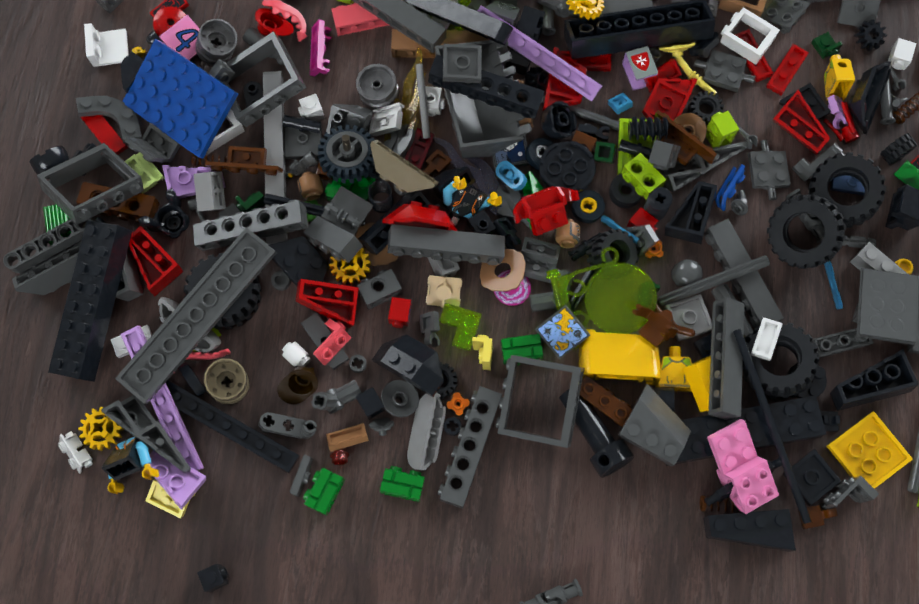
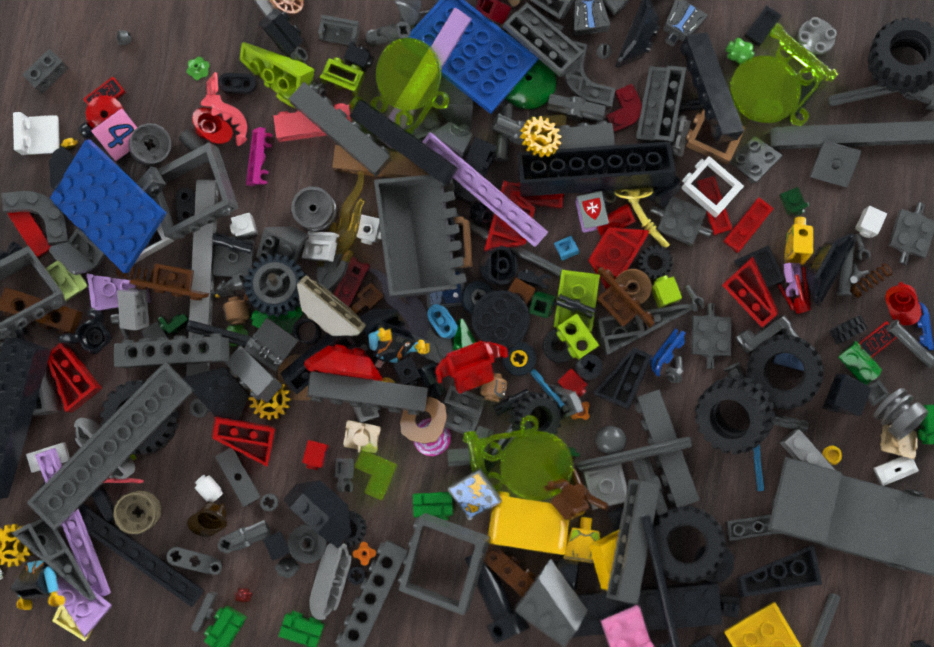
camera: 10 degrees right, 10 degrees up
(333, 343) = (246, 482): coral bracket -> none
(347, 437) = (252, 577): medium nougat tile -> none
(374, 298) = (288, 435): dark grey brick -> none
(422, 101) = (358, 233): light grey bar -> none
(462, 63) = (398, 209): dark grey tile -> none
(485, 347) = (396, 509): light yellow bracket -> none
(492, 97) = (379, 207): black brick -> none
(651, 128) = (587, 287): black piece -> none
(664, 155) = (600, 318): dark grey brick -> none
(766, 339) = (675, 526): white tile -> none
(867, 40) = (846, 189): black gear -> none

